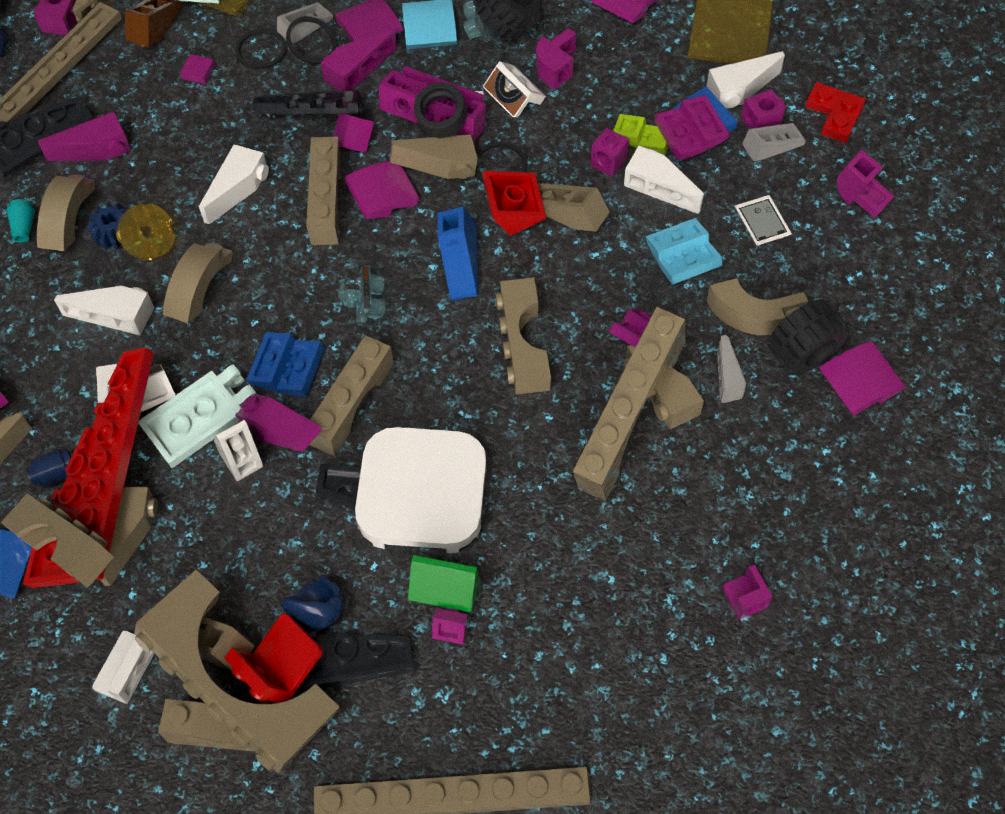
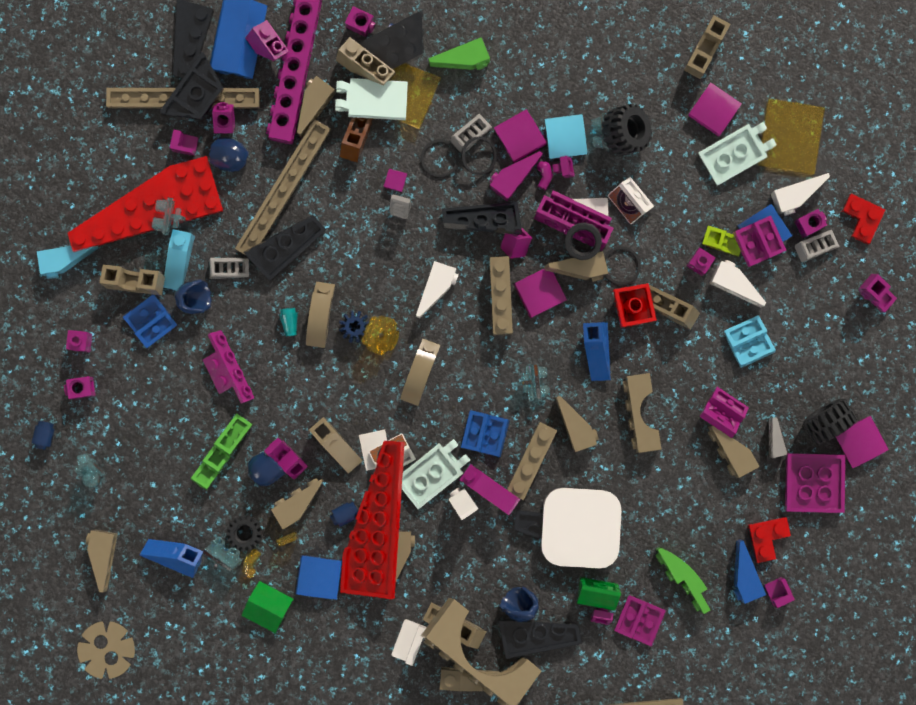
camera: 10 degrees left, 25 degrees up
(53, 369) = (335, 445): none -> dark tan slope
(75, 551) = (382, 590): dark tan arch -> none
(89, 141) = (331, 251): magenta slope -> none
(110, 307) = (368, 393): white slope -> none
(196, 88) = (400, 206): none -> light grey slope
(278, 662) = (503, 646): red bracket -> none
(399, 57) = (547, 175): none -> magenta arm
(424, 52) = (564, 167): none -> magenta tile
(425, 353) = (578, 430): none -> dark tan slope
(515, 637) = (640, 620): none -> magenta slope
(554, 60) = (657, 176): magenta brick -> none
(585, 558) = (680, 571): none -> bright green slope
(655, 352) = (697, 513): dark tan arch -> none
(657, 38) = (736, 153): none -> light aqua tile
(693, 574) = (745, 576): none -> blue slope
(716, 509) = (763, 534): none -> red plate
(749, 313) = (787, 393): dark tan arch -> none
(763, 220) = (804, 312): sticker -> none
(794, 433) = (815, 483): none -> magenta plate

